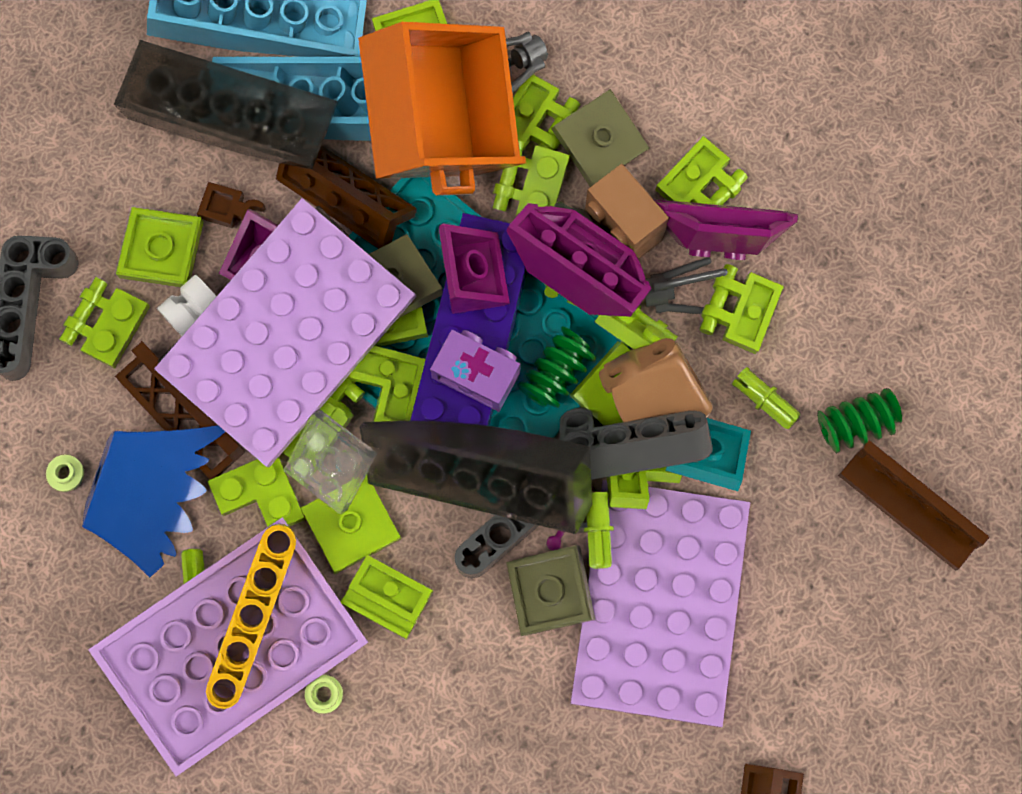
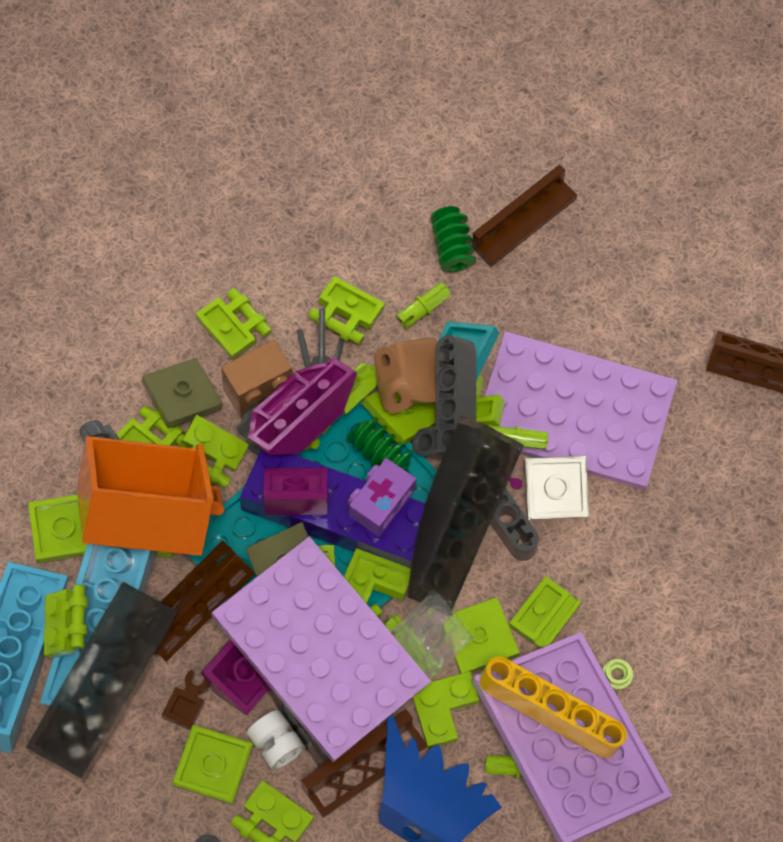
camera: 85 degrees left, 10 degrees down
(279, 54) = (65, 621): none -> lime plate
(724, 228) = (281, 303): magenta wedge -> none

